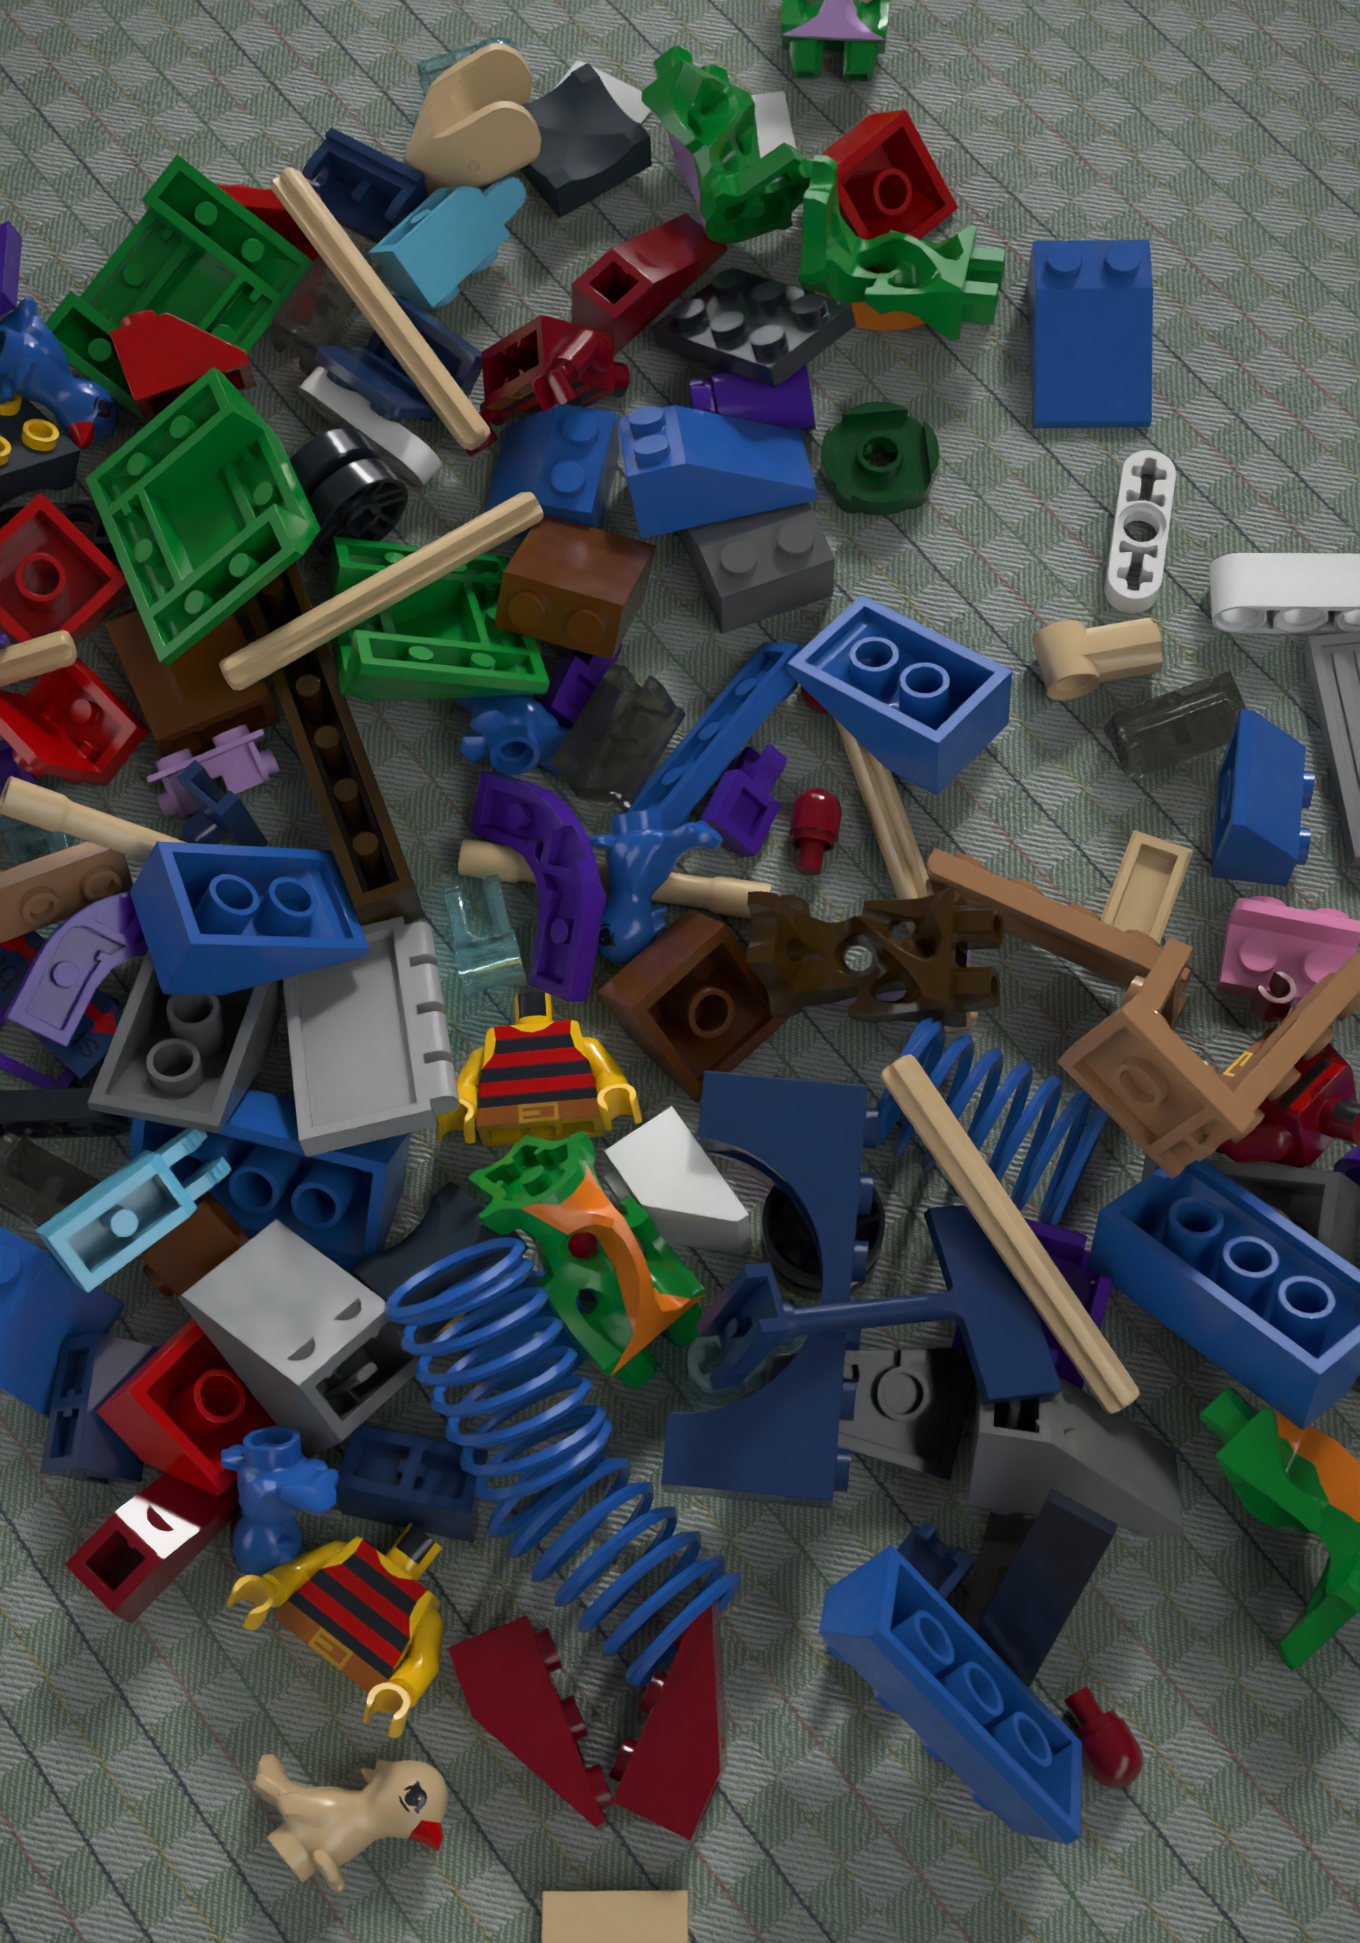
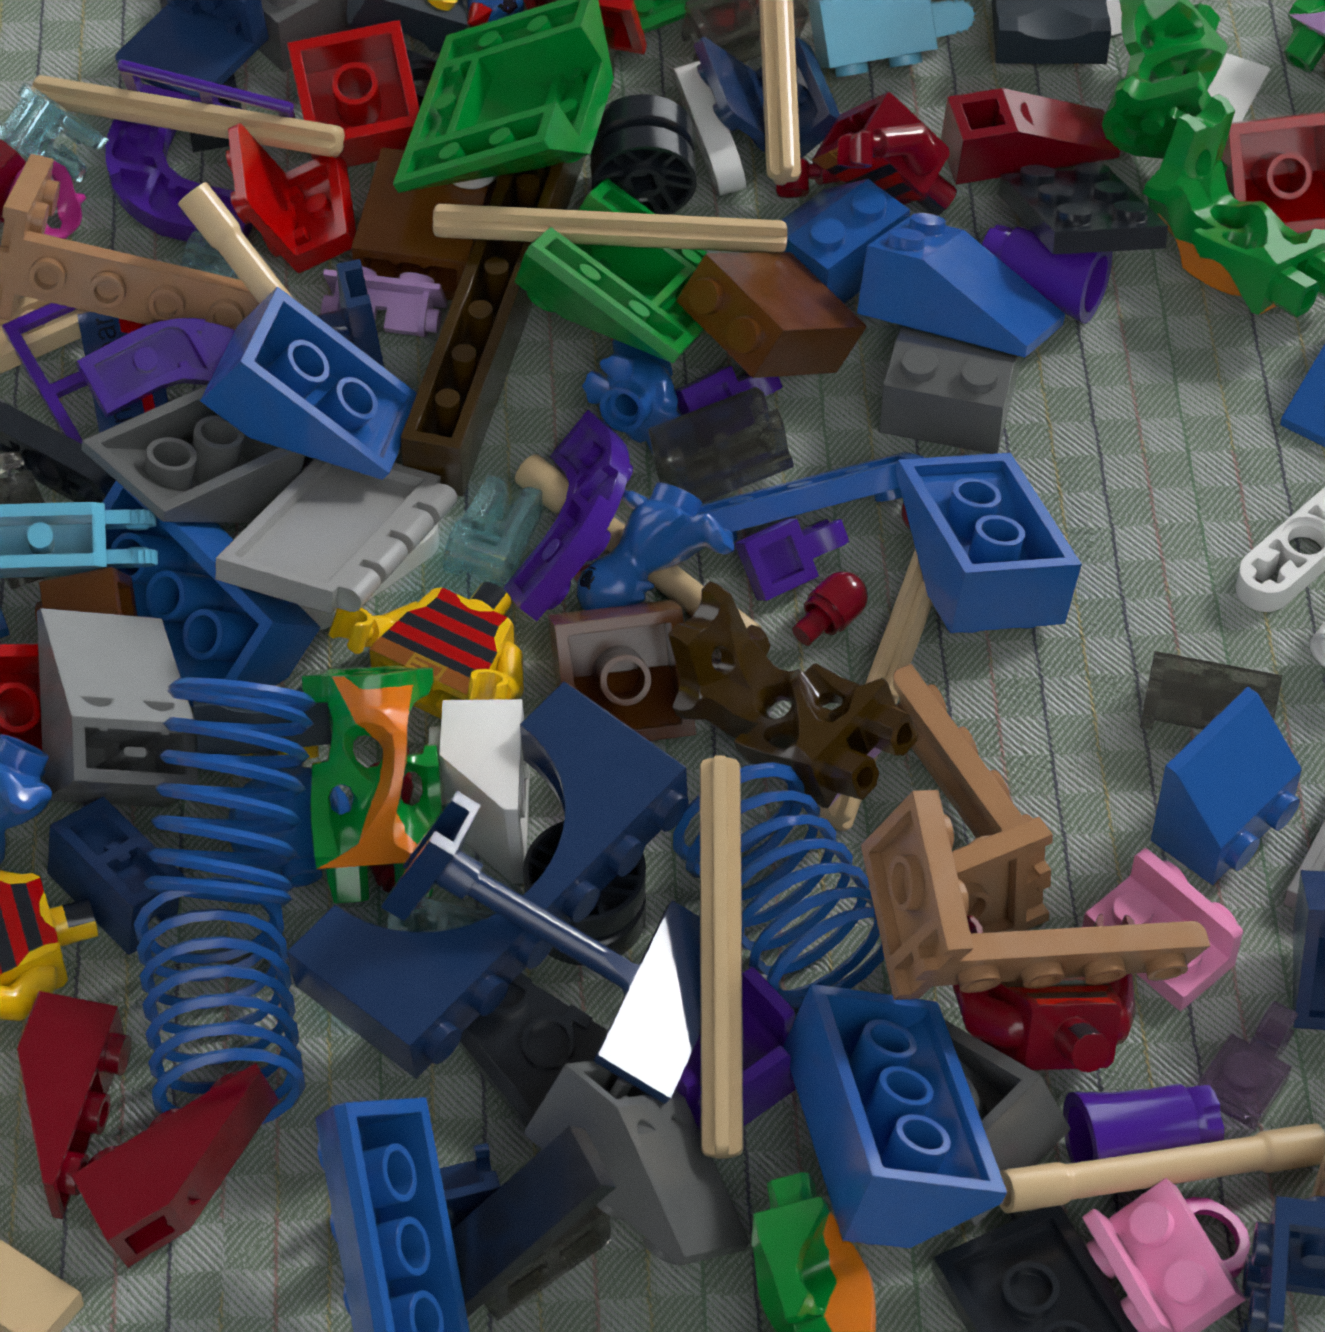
camera: 30 degrees right, 15 degrees down
(872, 488) = (1110, 397): dark green plate -> none
(1080, 658) = (1165, 605): tan piece -> none
(1146, 885) = (1085, 812): tan tile -> none

